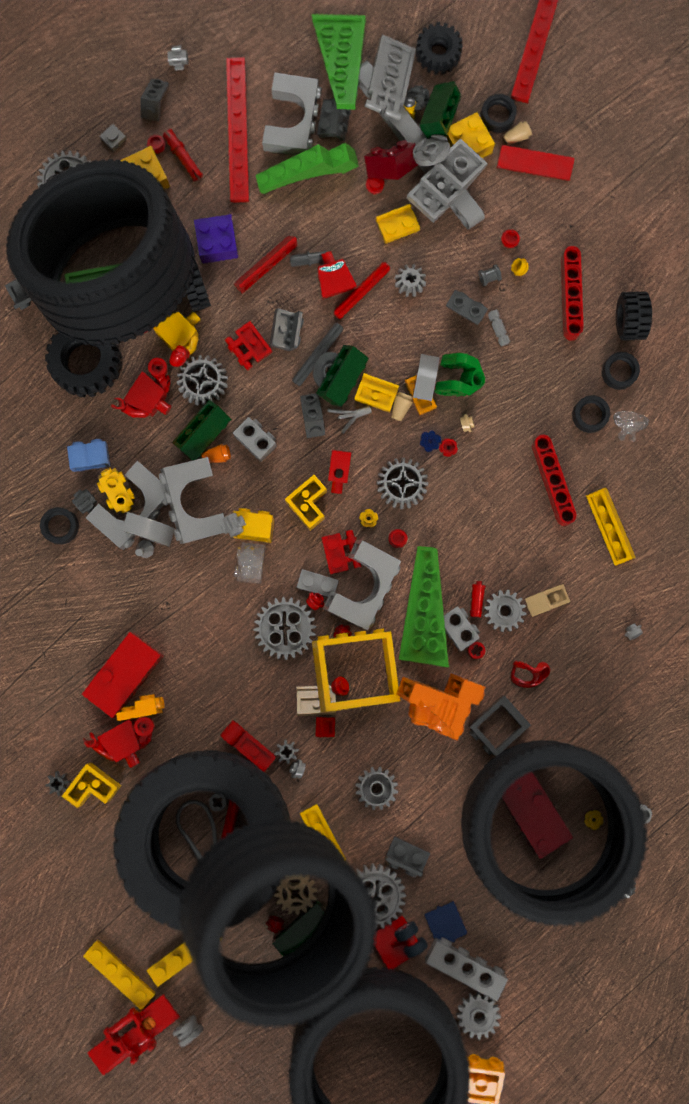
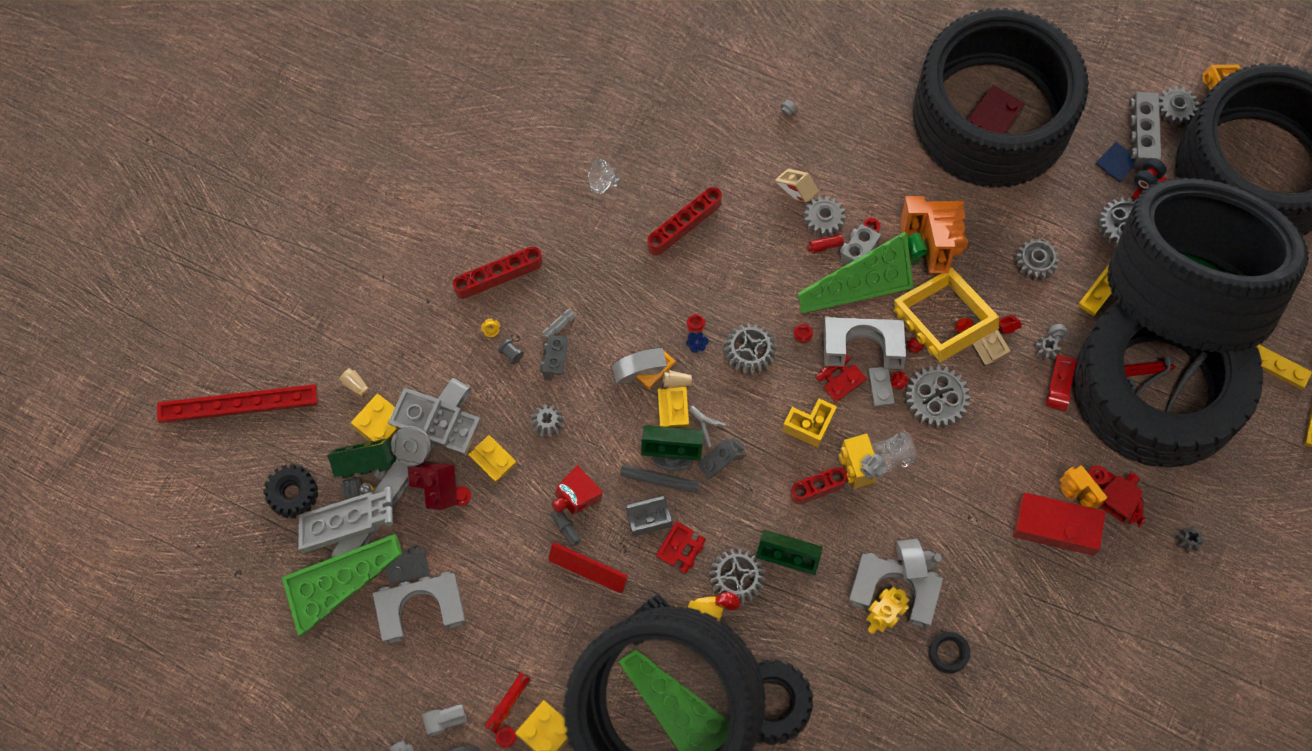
camera: 110 degrees left, 15 degrees down
(84, 501) = (913, 637): dark grey gear -> none
(88, 456) = (866, 655): medium blue brick -> none
(91, 781) = (1172, 507): yellow brick -> none
(145, 395) = (779, 623): red torso -> none
(174, 480) = (853, 549): light grey arch -> none
(191, 97) = (439, 720): none -> light grey piece
(216, 238) = (583, 623): dark purple brick -> none
(217, 454) = (804, 530): orange cone -> none
(237, 130) = (455, 657): red plate -> none
(247, 475) = (825, 479): none -> red beam
(251, 442) = (776, 501): light grey brick -> none
(308, 164) = (473, 567): bright green arch -> none
(342, 461) = (764, 407): red torso -> none
(361, 290) = (571, 462): red axle -> none
(368, 523) = (792, 366): yellow plate -> none
(406, 856) = (1081, 213): dark grey bracket -> none
(433, 675) = (917, 248): none -> green piece
(467, 423) = (665, 315): tan plate -> none
(471, 378) = (623, 326): green piece -> none
(503, 100) = (332, 395): black tyre -> none
(510, 238) = (465, 348): red plate -> none
(513, 712) = (909, 189): dark grey window -> none
(535, 162) = (378, 355): red slope -> none
(539, 673) = (865, 167): red piece -> none
(593, 814) = (963, 84): yellow plate -> none
(601, 403) = (607, 200): black tyre -> none
(610, 526) = (703, 161): yellow slope -> none
(630, 360) = (548, 192): black tyre -> none
(634, 315) = (501, 207): black tyre -> none

